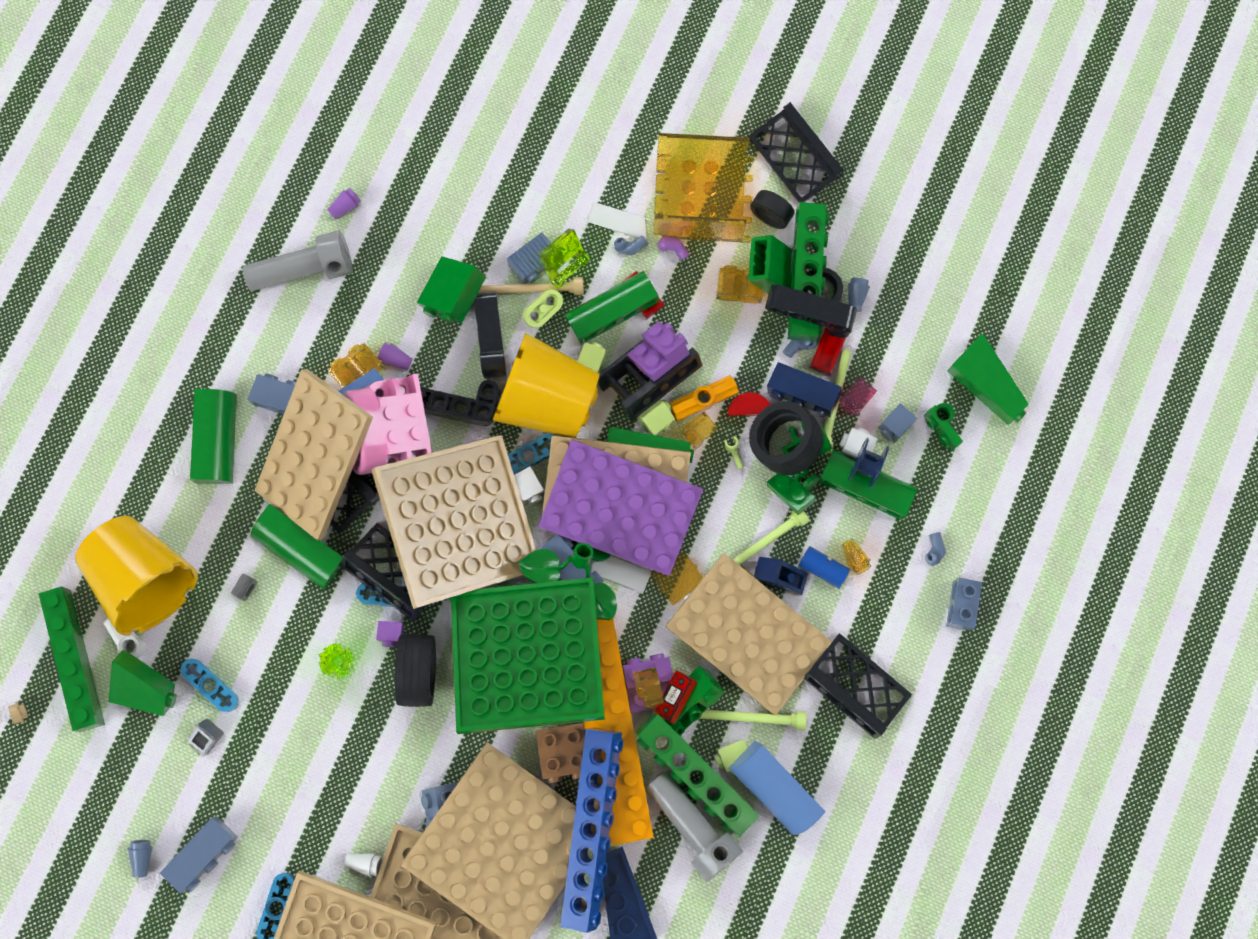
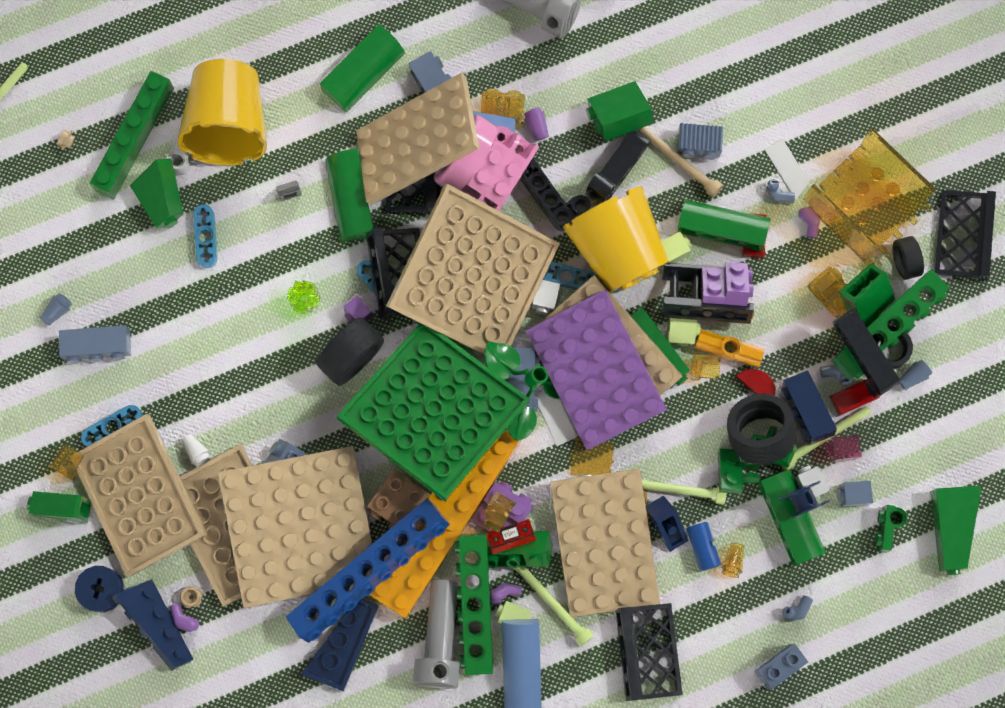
camera: 45 degrees right, 0 degrees up
(205, 736) = (171, 268): flat silver slope -> none
(542, 309) = (673, 181): yellowish green plate -> none
(559, 253) = (721, 152): clear neon green plate -> none
(706, 744) = (504, 590): none -> medium lavender arm
(733, 449) = (717, 404): yellowish green hand -> none

